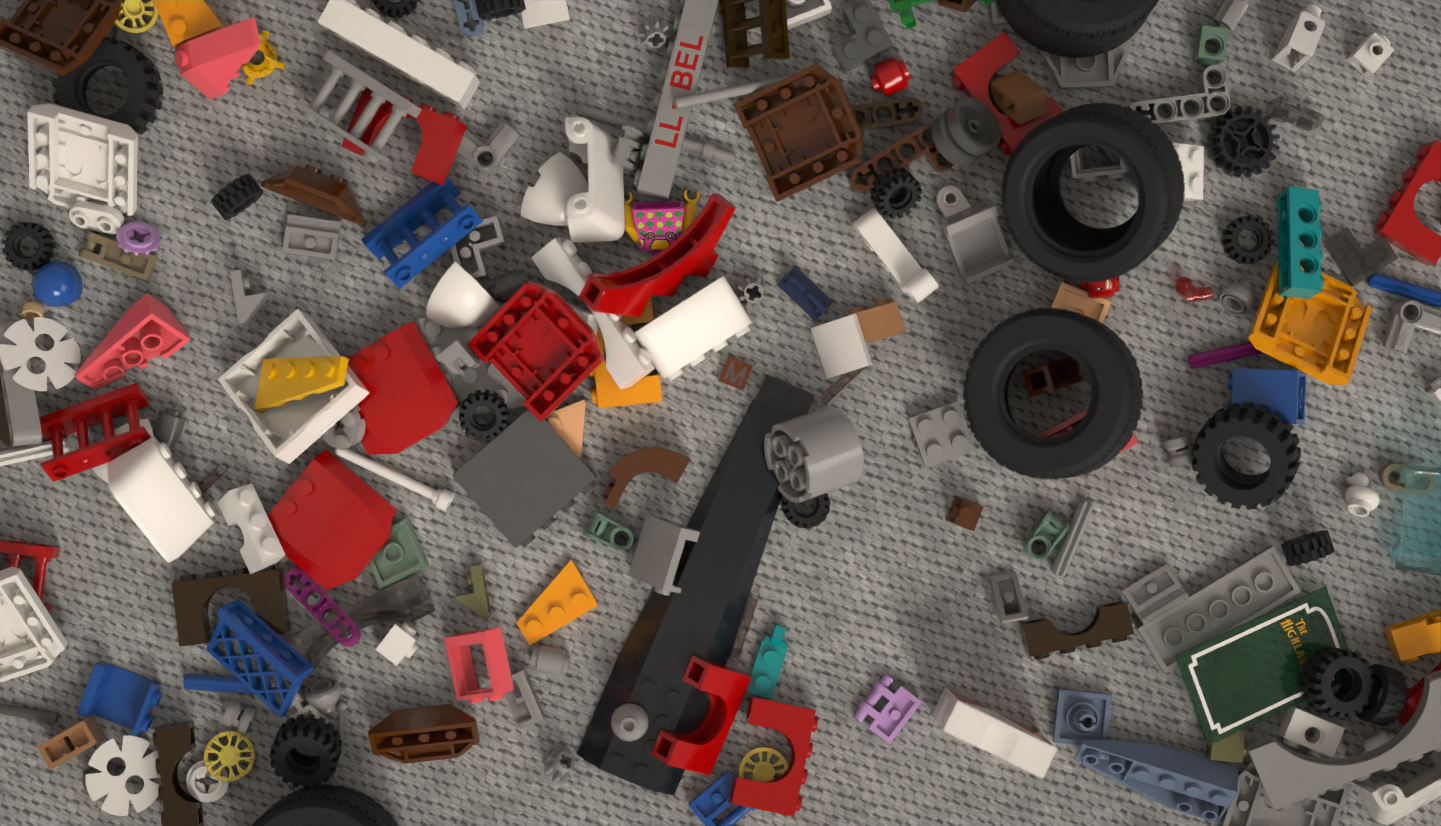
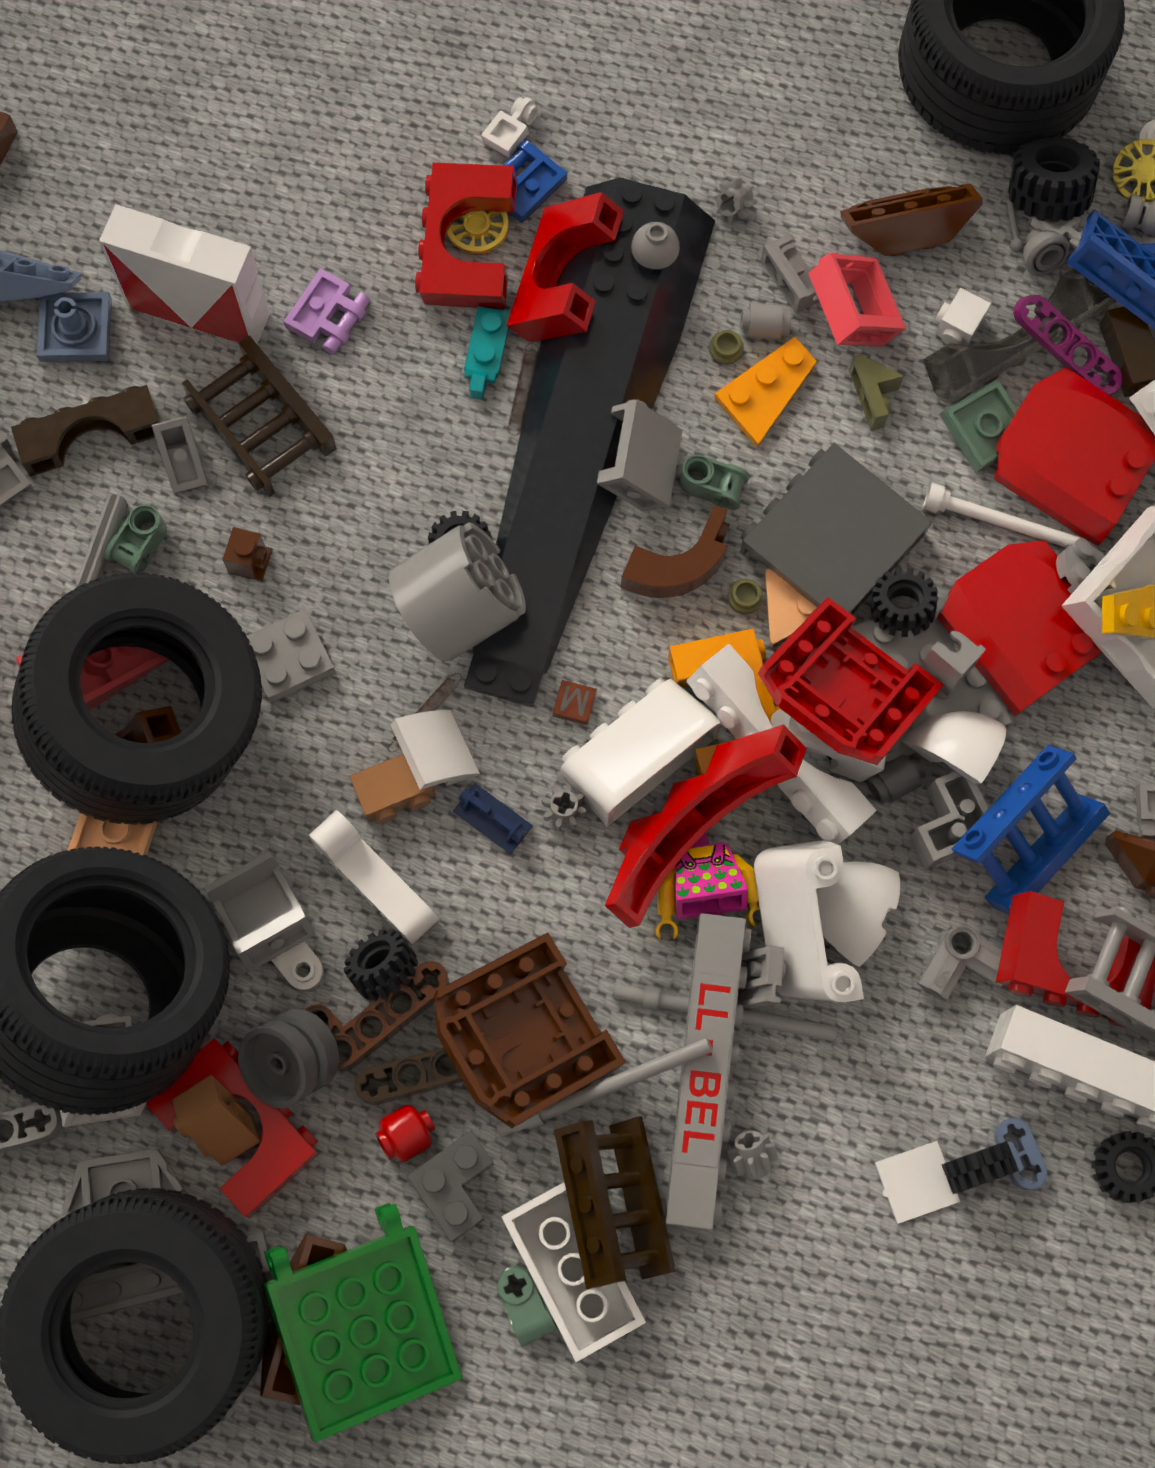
camera: 170 degrees right, 15 degrees down
(583, 643) = (726, 347): none -> olive plate
(598, 439) = (745, 596): none -> olive plate
(921, 625) = (273, 386): none -> dark brown fence

